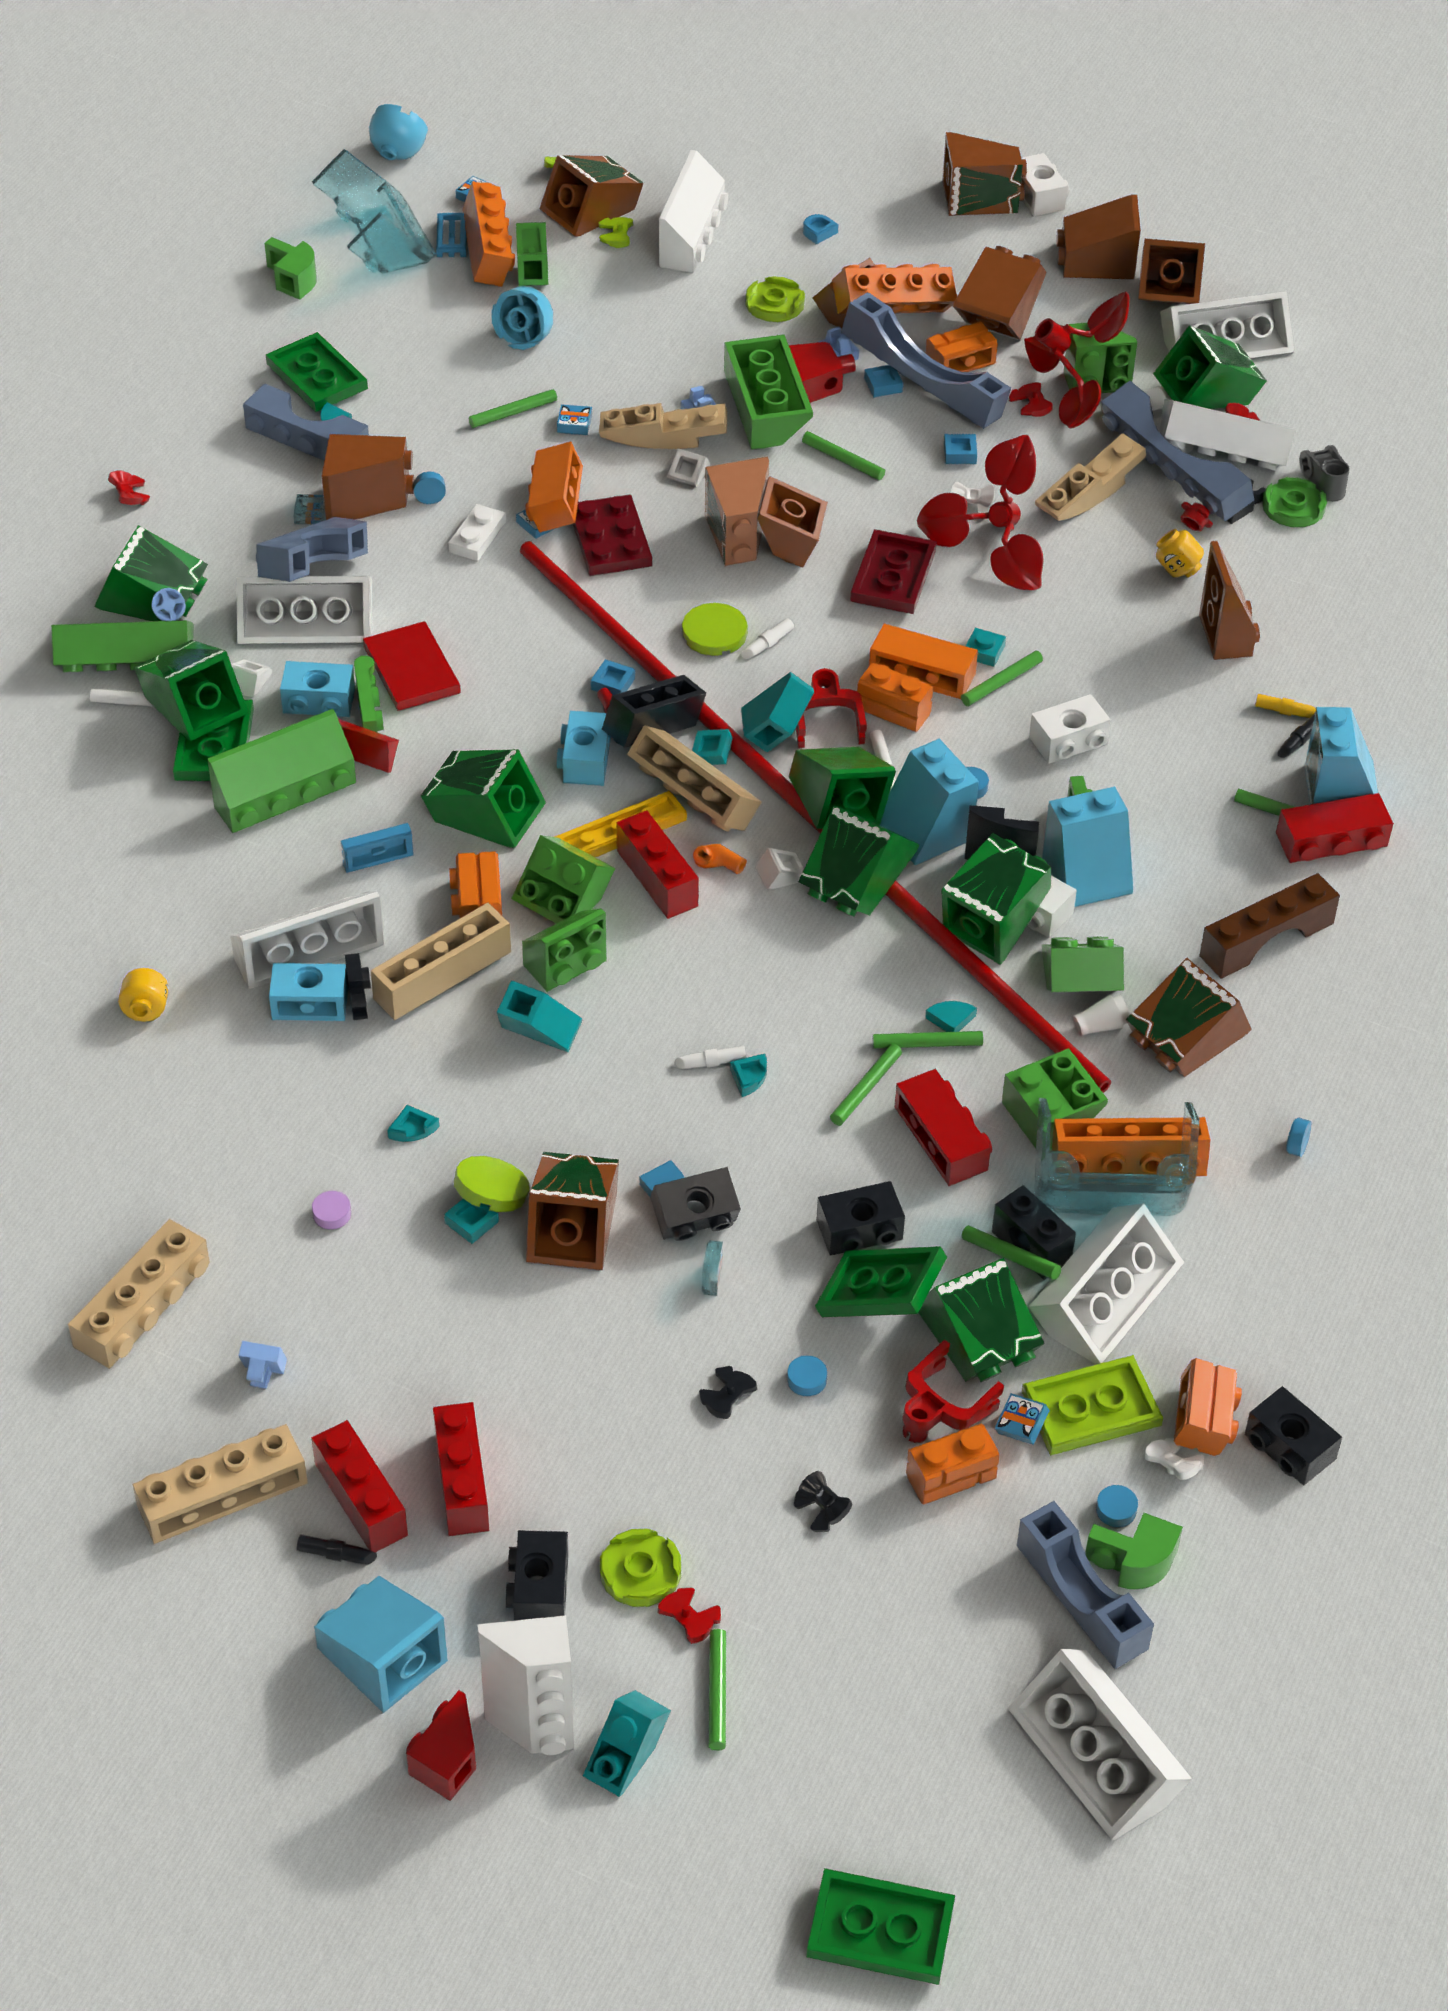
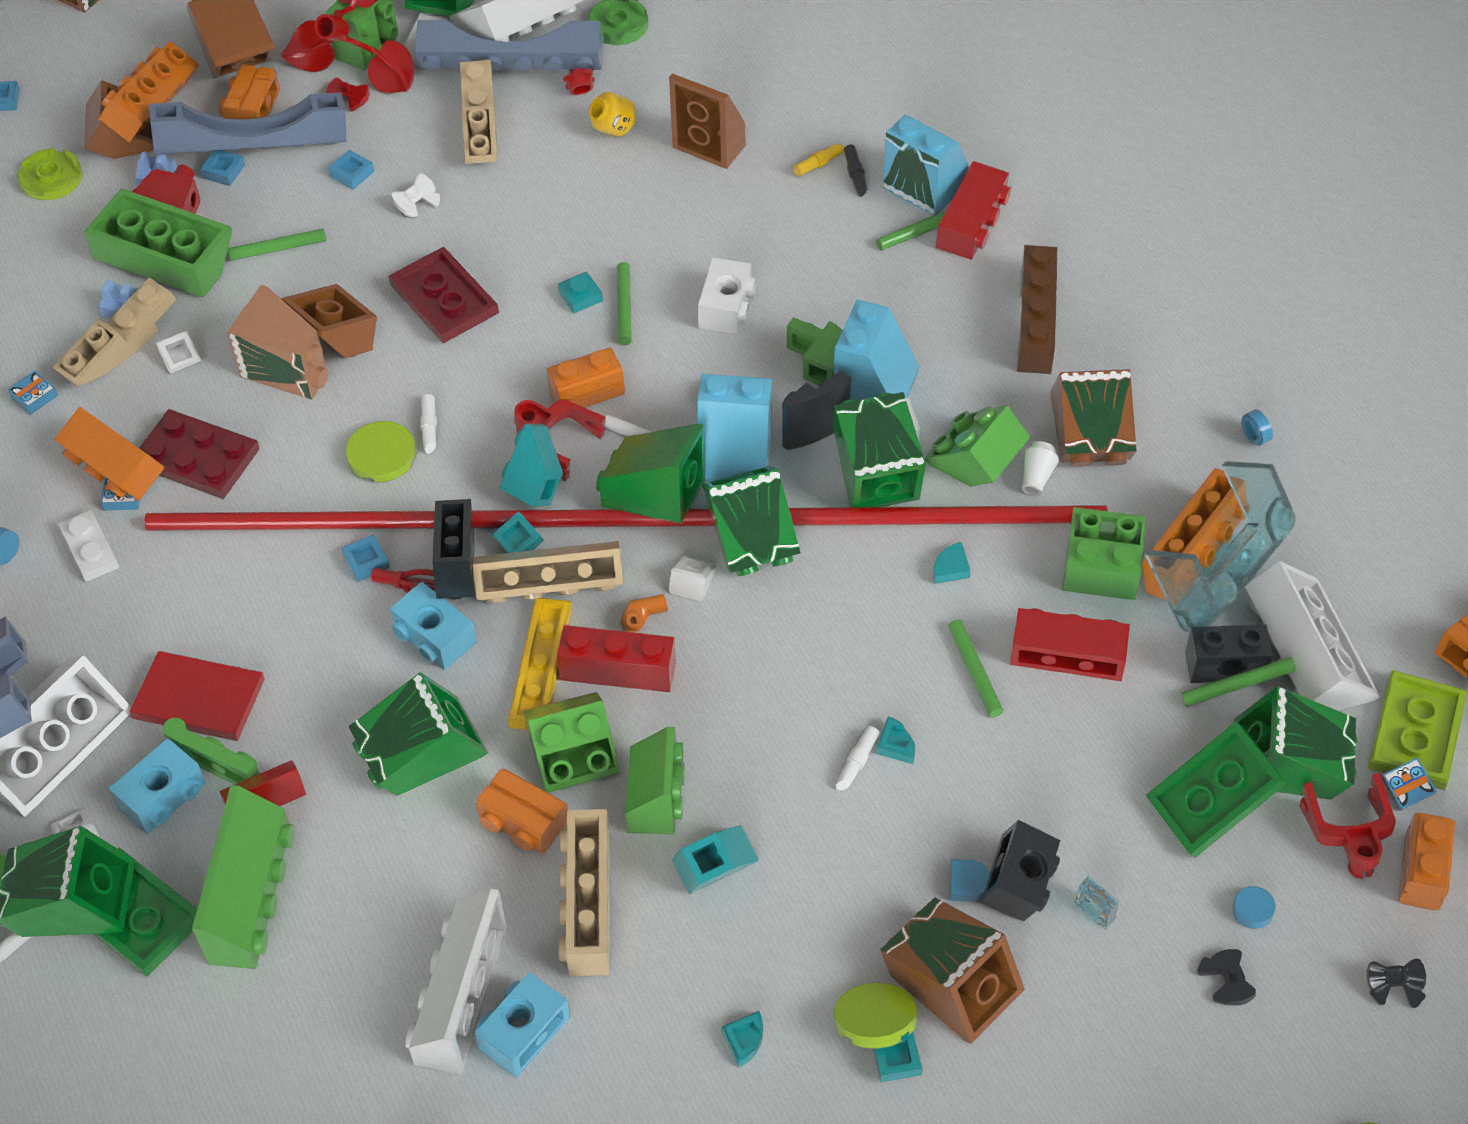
camera: 50 degrees left, 5 degrees up
(358, 980) = (551, 974): black plate -> none
(377, 847) = (398, 859): dark azure tile -> none
(860, 1218) = (1119, 782): black brick -> none
(928, 1039) = (961, 596): bright green bar -> none
(930, 659) = (562, 337): orange brick -> none
(945, 517) = (453, 141): red plant -> none

